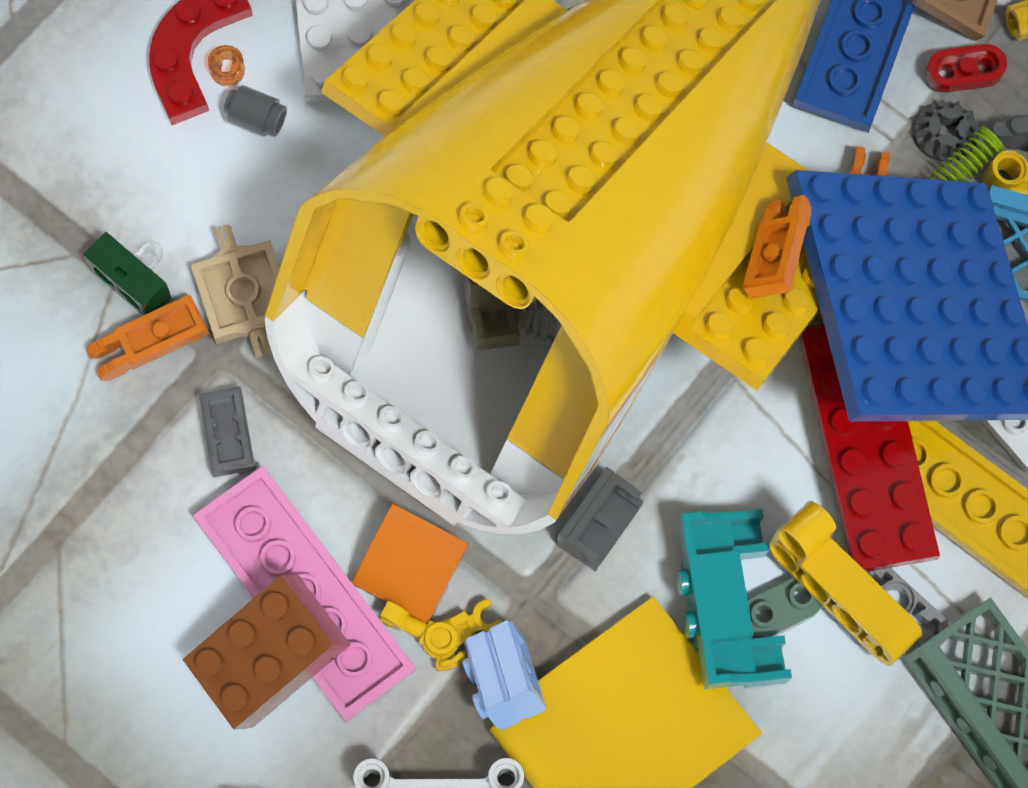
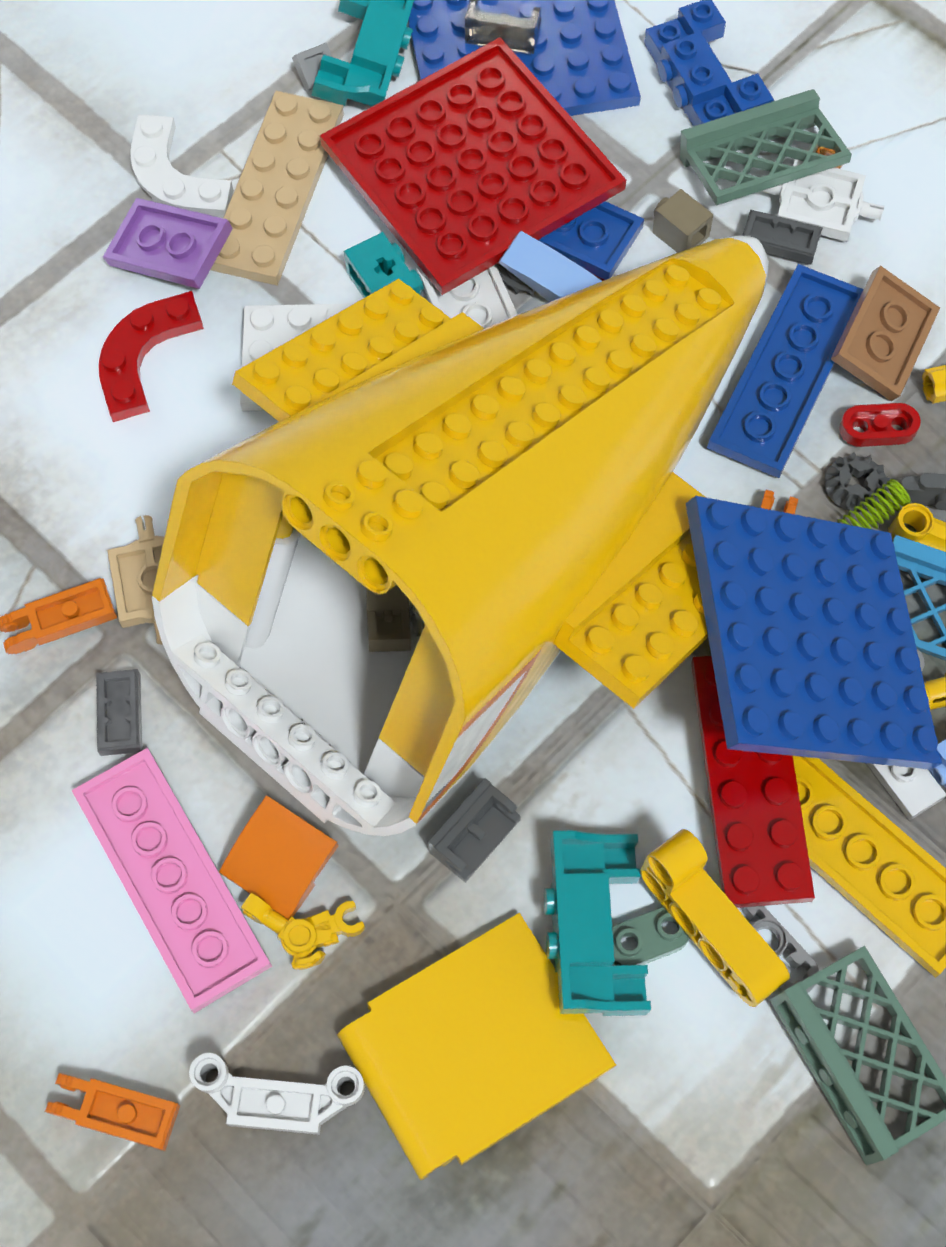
camera: 10 degrees right, 5 degrees down
(130, 272) = (49, 553): dark green piece -> none
(236, 71) = (162, 366): clear orange bush -> none
(255, 111) = (190, 413): dark grey brick -> none
(266, 652) = (120, 933): dark orange brick -> none
(503, 675) = (355, 980): light blue brick -> none
(777, 248) = (668, 568): orange hinge -> none

